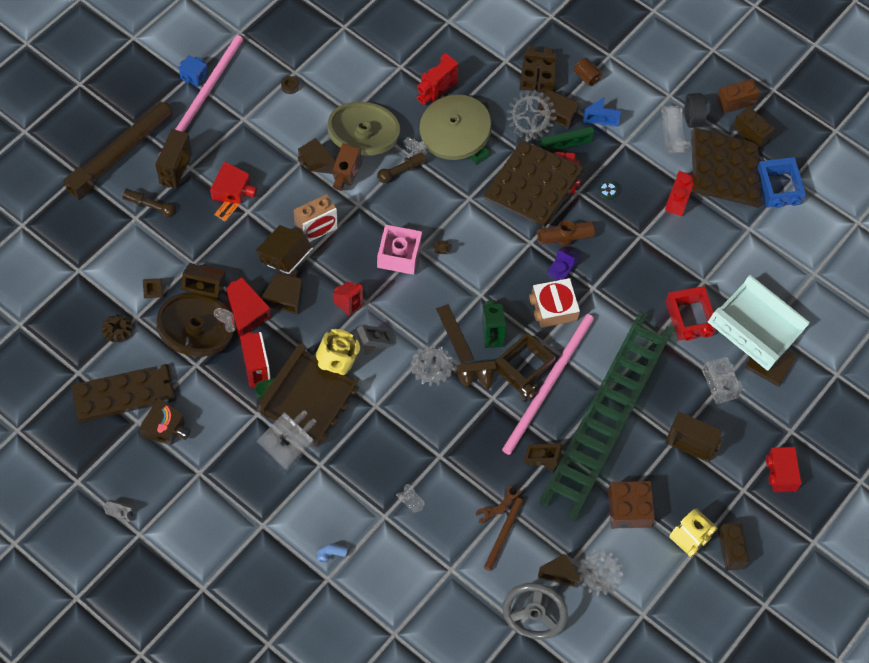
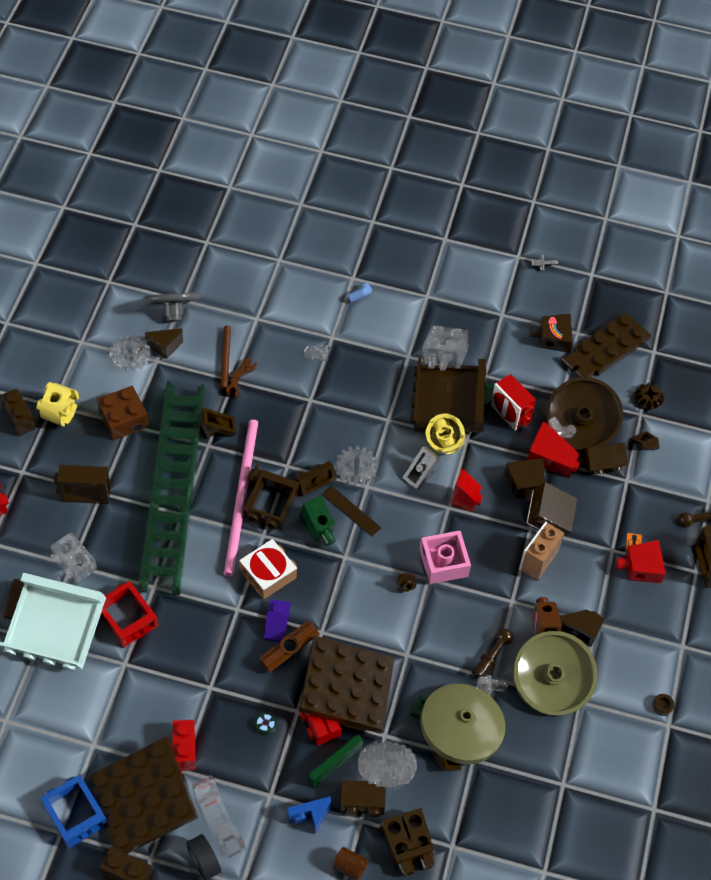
camera: 155 degrees right, 5 degrees down
(438, 80) = (512, 759): red hips -> none

